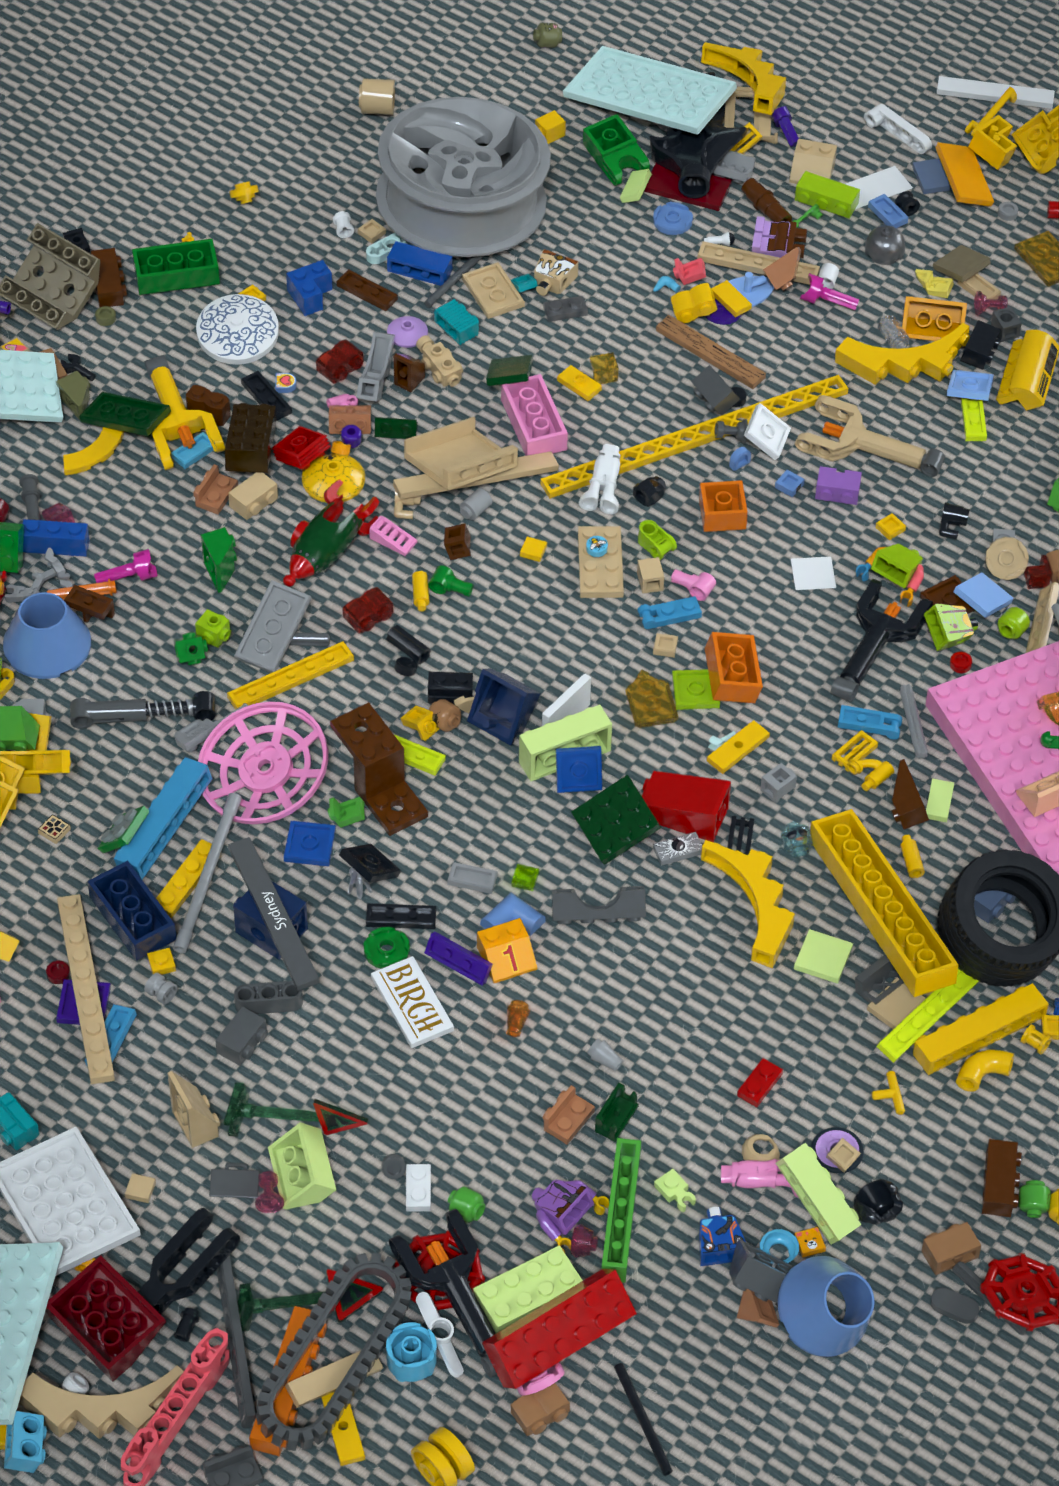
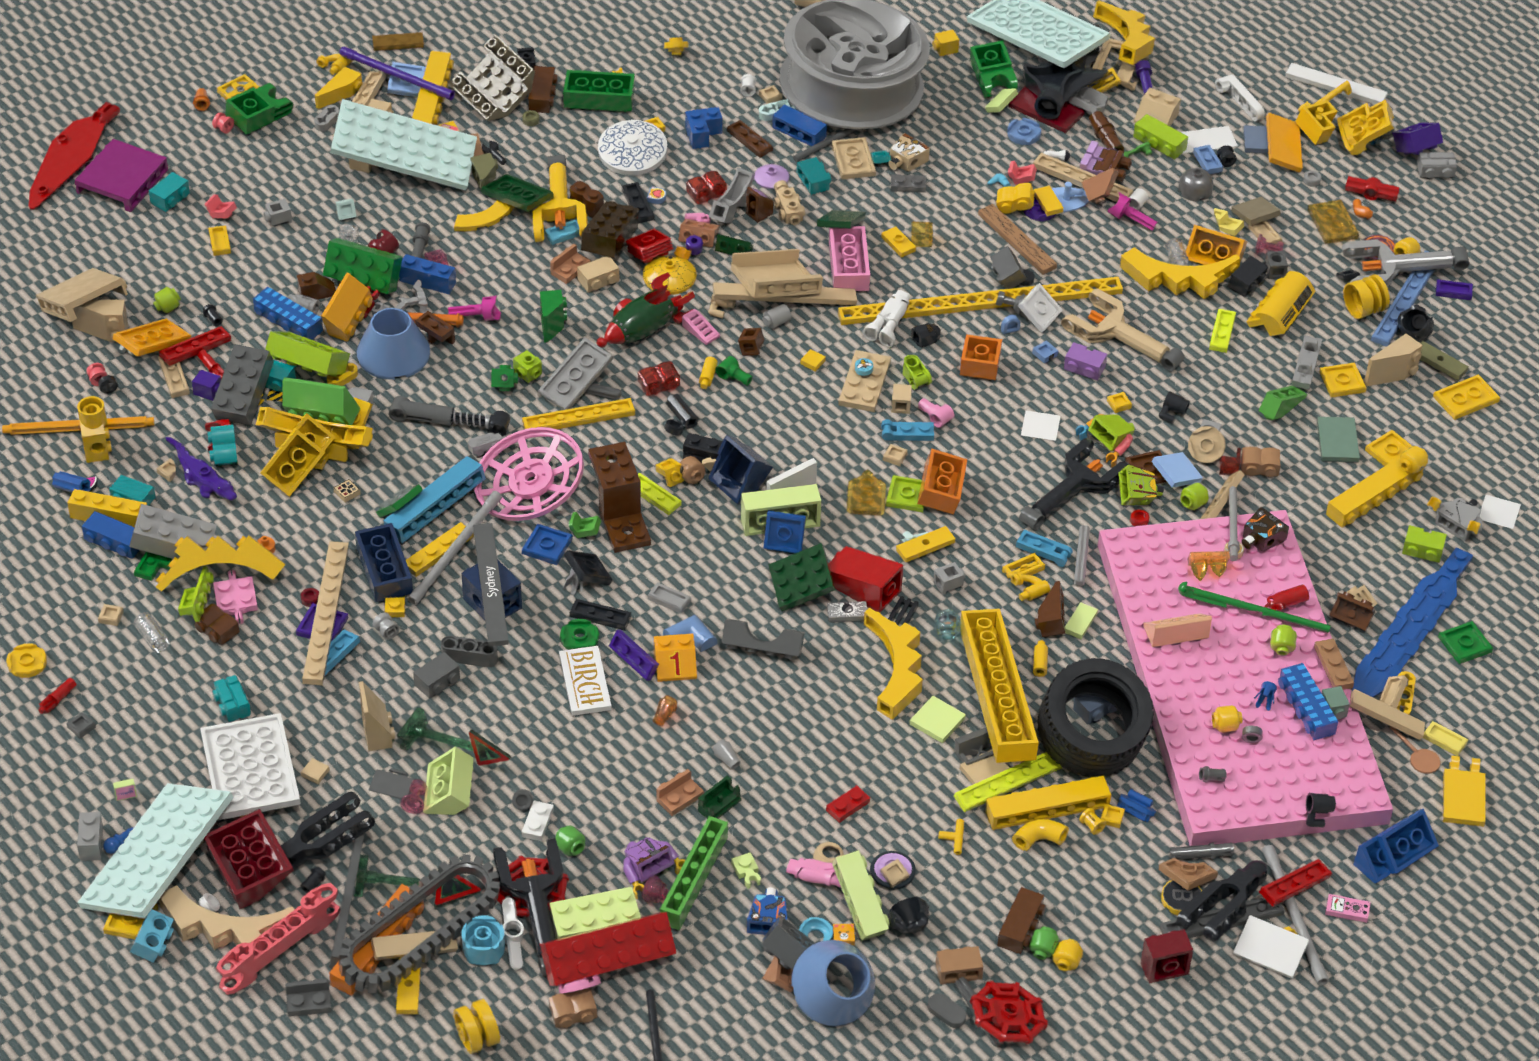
camera: 15 degrees right, 5 degrees down
(525, 877) = (712, 607): clear neon green tile -> none
(970, 385) = (1227, 305): light blue tile -> none

